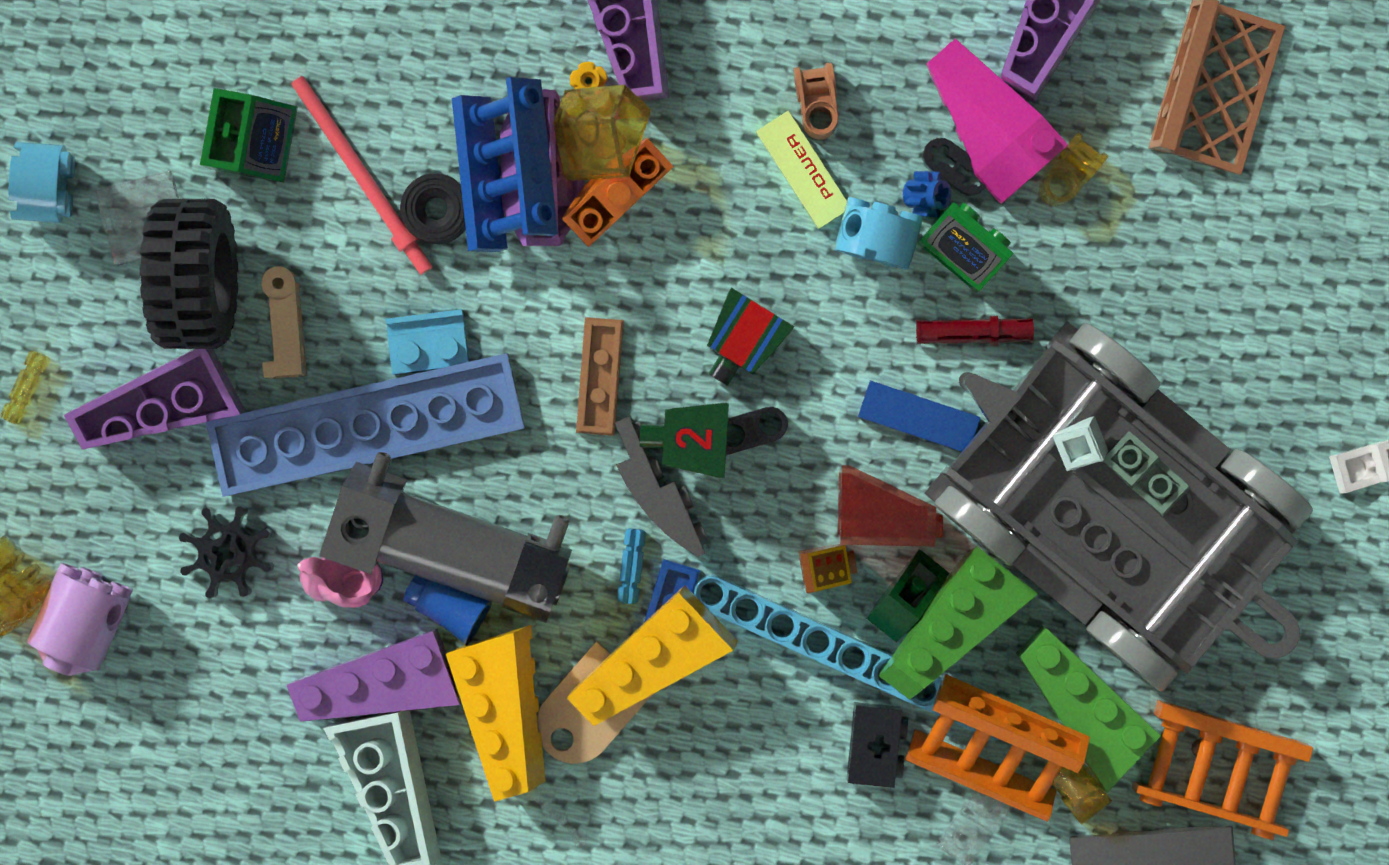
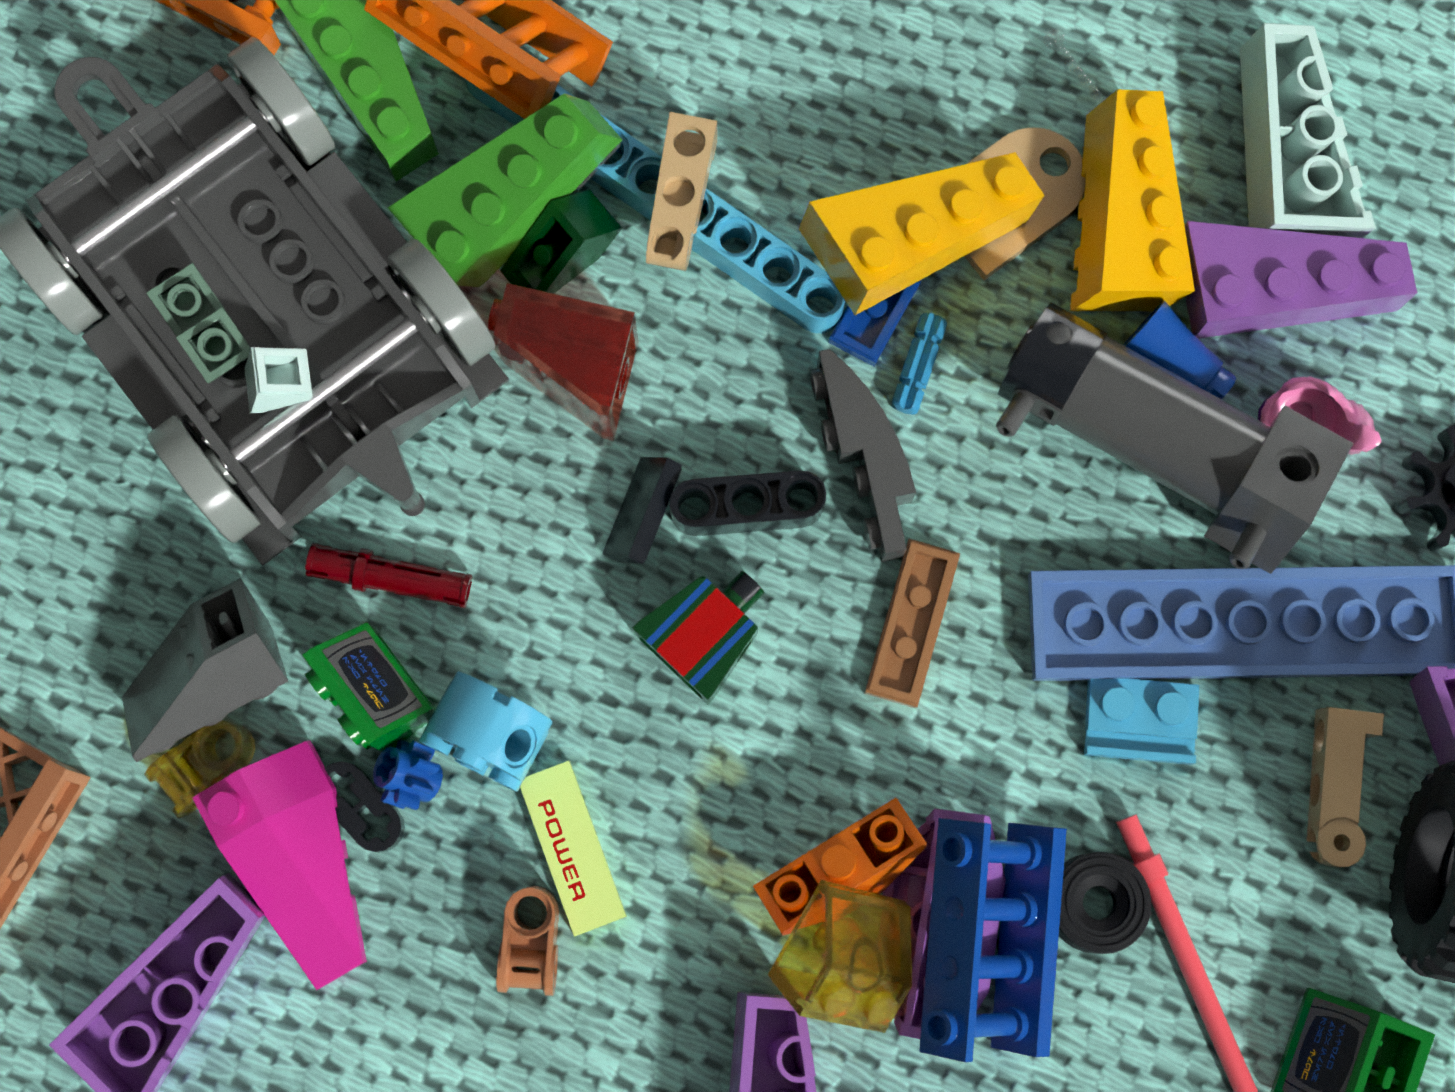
camera: 165 degrees left, 10 degrees down
(585, 70) = (846, 1057): yellow plate -> none
(691, 438) = (805, 499): dark green torso -> none
(806, 414) = (642, 510): none -> black tile
(826, 567) = (663, 300): dark orange slope -> none
(828, 648) = (680, 189): none -> tan leg
(864, 765) = (649, 98): black brick -> none
(918, 416) = (492, 478): blue tile -> none
(1085, 233) = (203, 670): none -> dark grey slope

